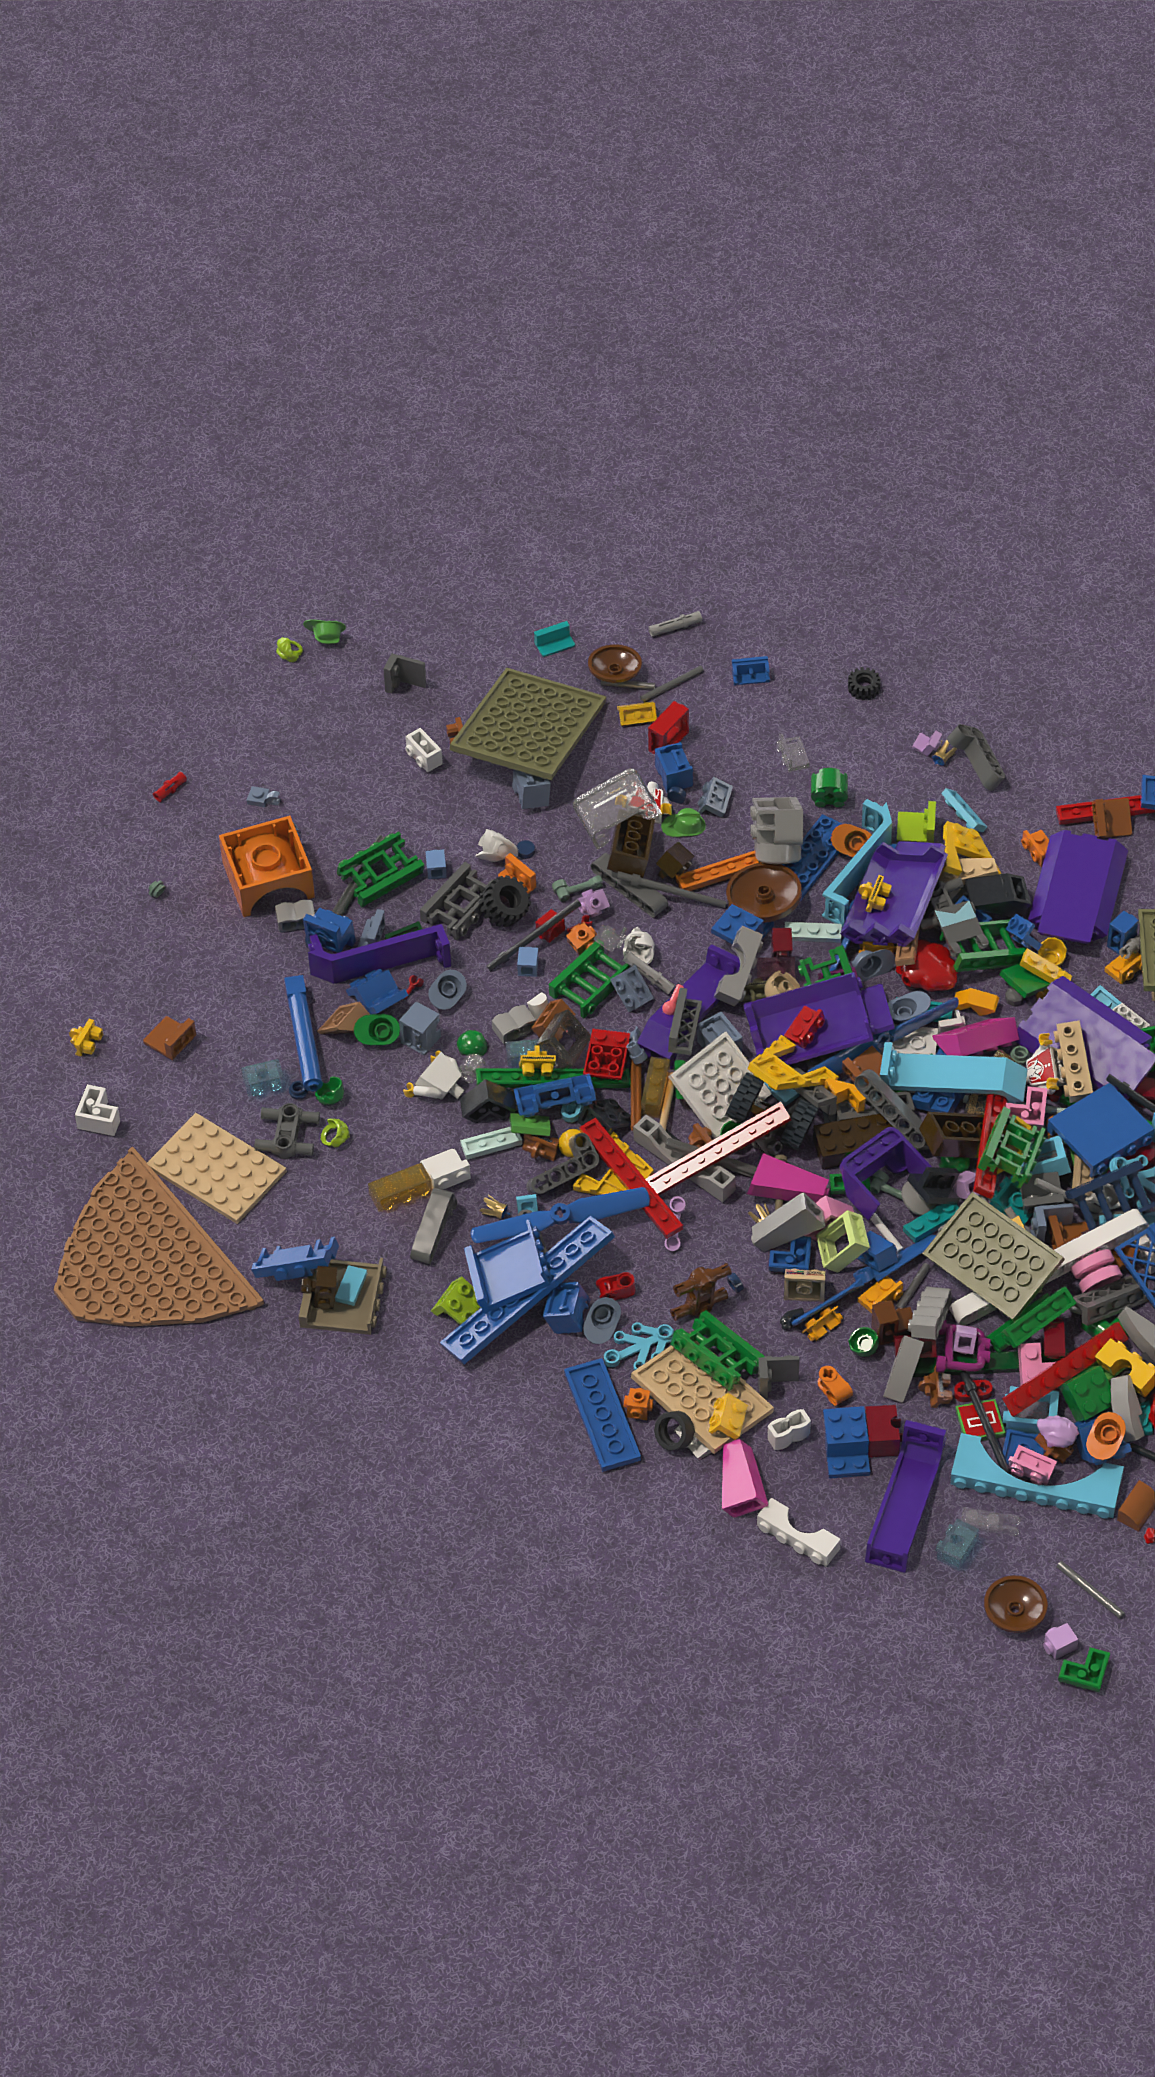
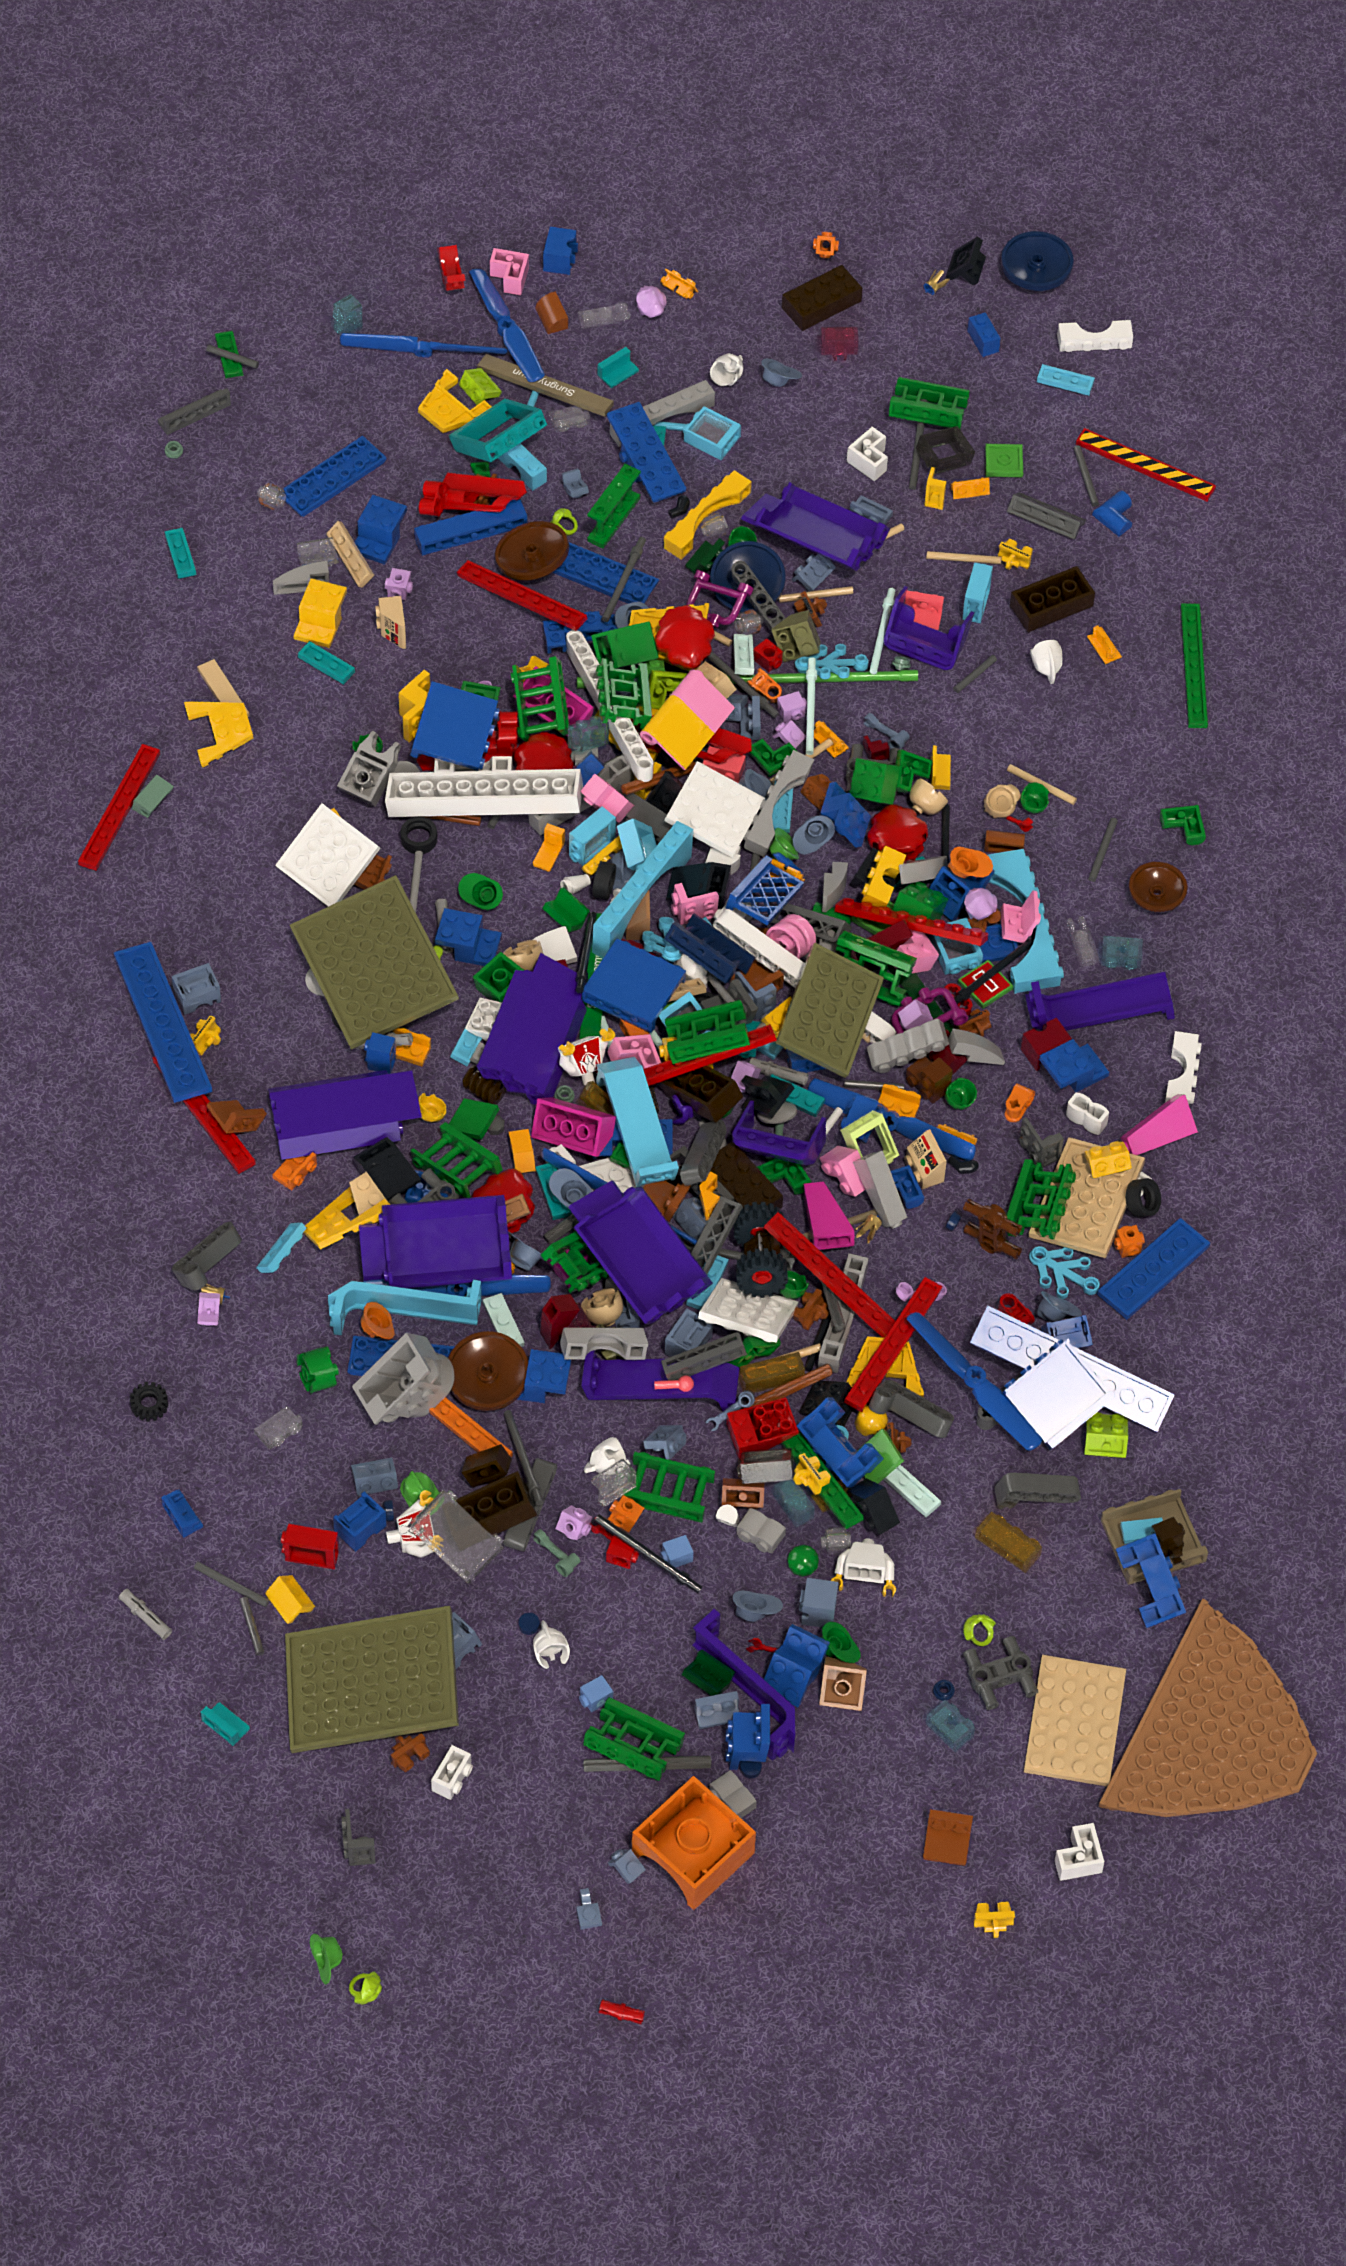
camera: 120 degrees left, 5 degrees up
(156, 888) = (768, 1950): sand green plate -> none
(303, 1033) = (834, 1742): blue brick -> none
(330, 1092) = (934, 1655): green hair -> none
(446, 1169) = (966, 1511): white bracket -> none
(448, 894) = (628, 1663): dark grey fence -> none
(496, 910) = (620, 1597): black tyre -> none
(499, 1209) = (984, 1446): pearl gold piece -> none
(519, 870) = (574, 1609): orange bracket -> none
(527, 1202) = (968, 1426): medium azure tile -> none
(614, 663) = (237, 1628): reddish brown dish -> none
(648, 972) = (639, 1429): light grey pin -> none
(782, 1076) = (726, 1251): yellow wing -> none
(804, 1026) = (647, 1258): red bracket -> none
(868, 891) = (451, 1263): yellow hips -> none
(917, 826) = (319, 1277): lime bracket -> none
(960, 924) = (457, 1174): dark grey flag -> none
(1021, 930) = (425, 1131): blue bracket -> none
(1042, 967) = (455, 1104): yellow hinge -> none
(1060, 1641) = (1169, 849): lavender brick -> none
(1074, 1061) = (571, 1025): tan brick -> none

